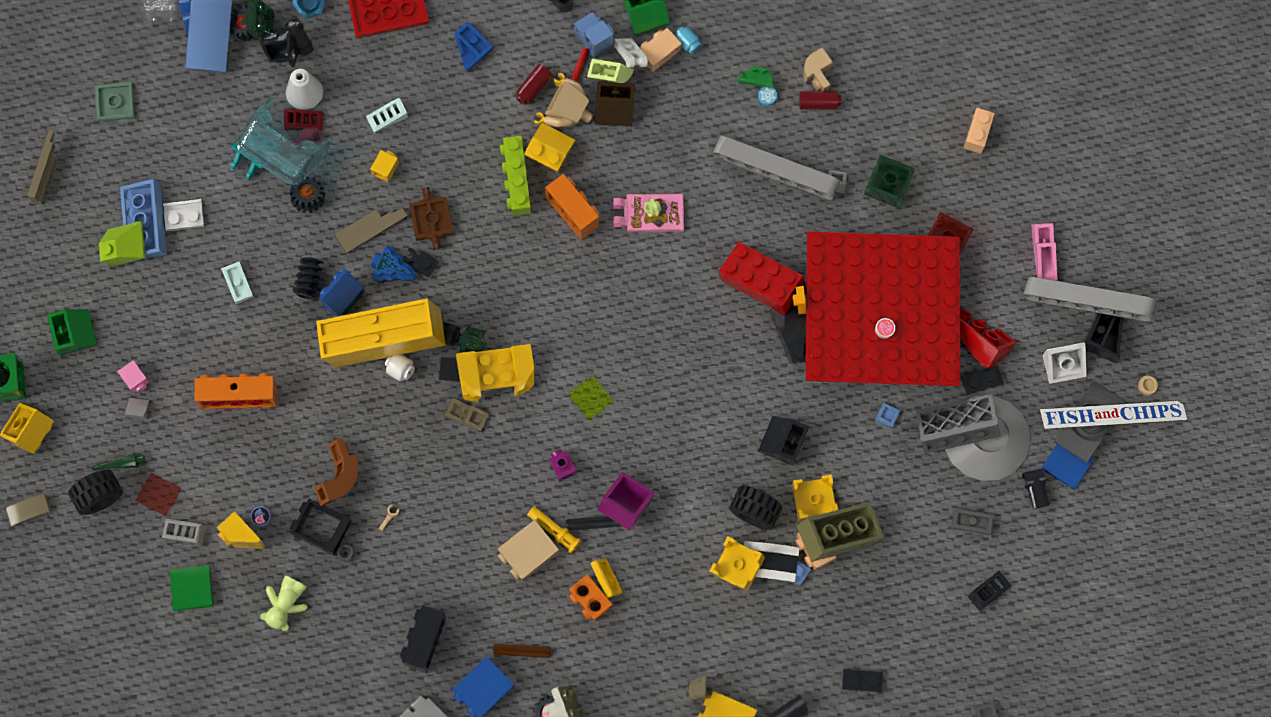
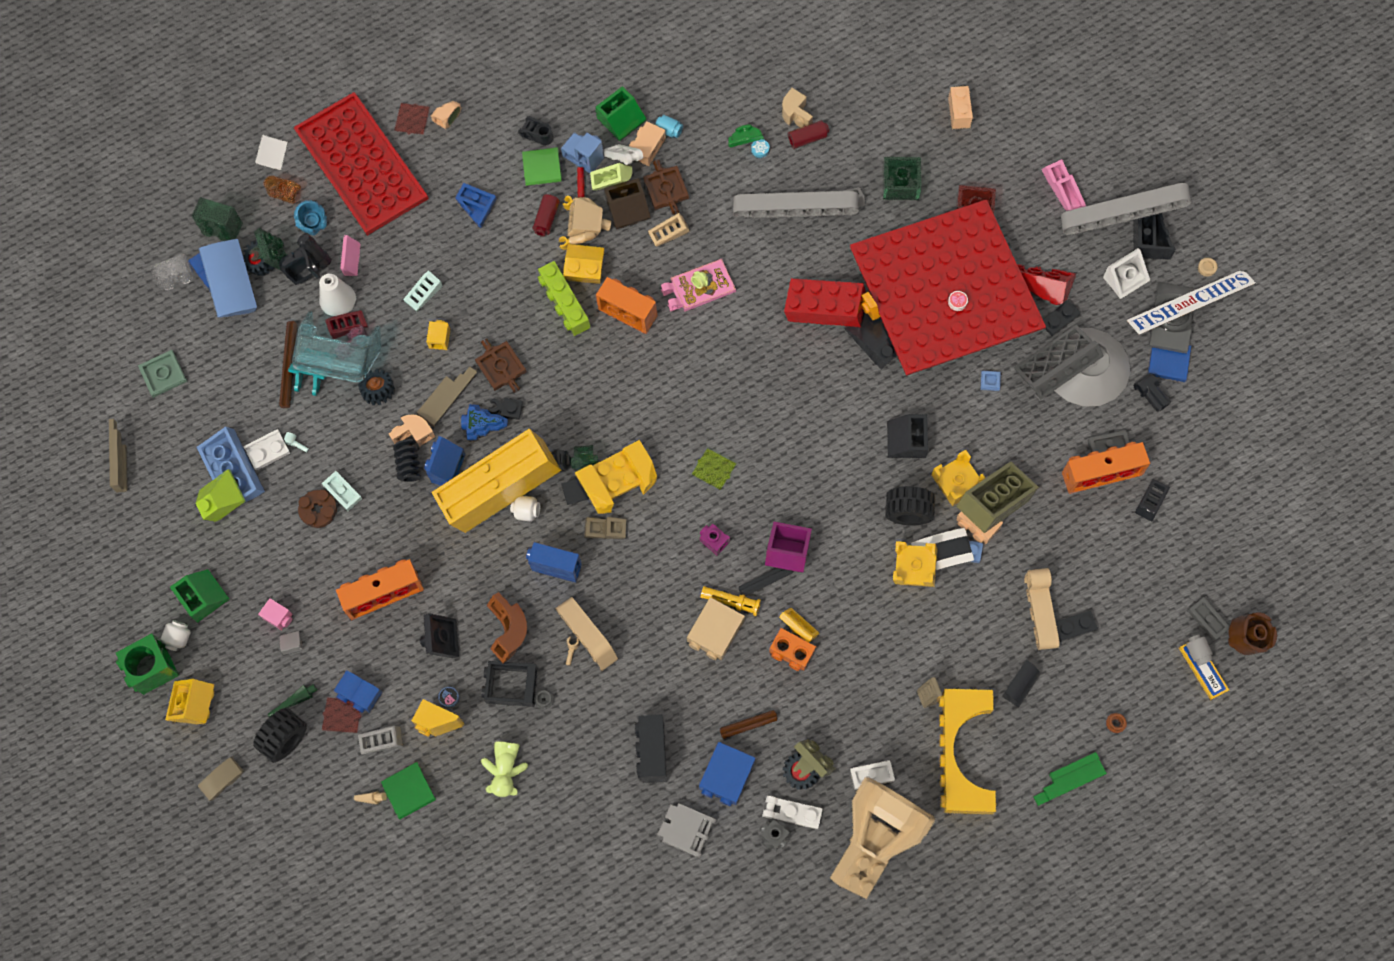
camera: 15 degrees left, 5 degrees down
(36, 360) = (175, 635): none -> white head
(157, 581) = (372, 797): none -> tan bar
(180, 479) = (357, 691): none -> blue brick
(201, 298) = (308, 503): none -> reddish brown plate
(208, 214) = (290, 440): none -> light aqua hand
(227, 152) = (287, 377): none -> reddish brown axle
(274, 457) = (440, 636): none -> black tile
(327, 247) = (414, 426): none -> light nougat brick
(332, 54) = (350, 256): none -> bright pink slope
(404, 429) = (554, 562): none -> blue brick
(408, 508) = (587, 633): none -> tan beam
(549, 33) = (541, 166): none -> bright green slope
(645, 152) = (678, 218): none -> tan slope
(659, 101) = (666, 187): none -> reddish brown plate
(837, 653) = (1041, 608): none -> tan beam
(956, 543) = (1105, 467): none -> orange brick

